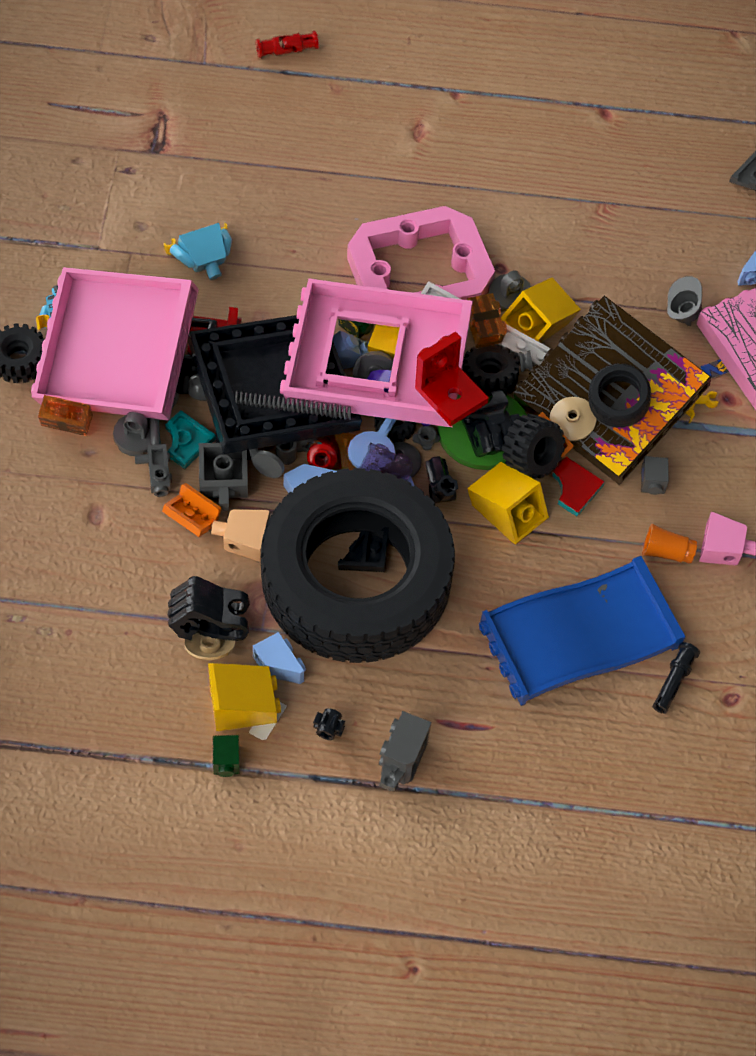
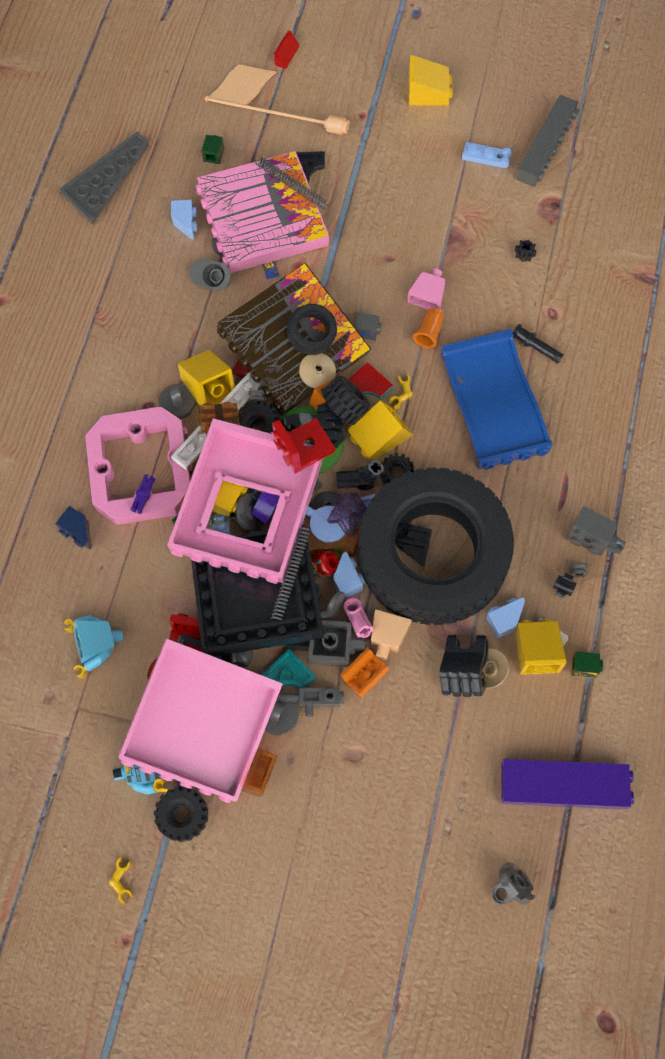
camera: 75 degrees left, 10 degrees up
(70, 739) = (566, 784): none -> dark purple brick
(259, 495) = (358, 618): none -> bright pink piece
(335, 217) = (76, 526): none -> dark blue slope
(353, 742) = (578, 569): none -> dark grey bush
(379, 264) = (142, 494): none -> dark purple pin
(468, 517) = (395, 461): none -> black tyre
(568, 530) = (407, 393): none -> yellow arm

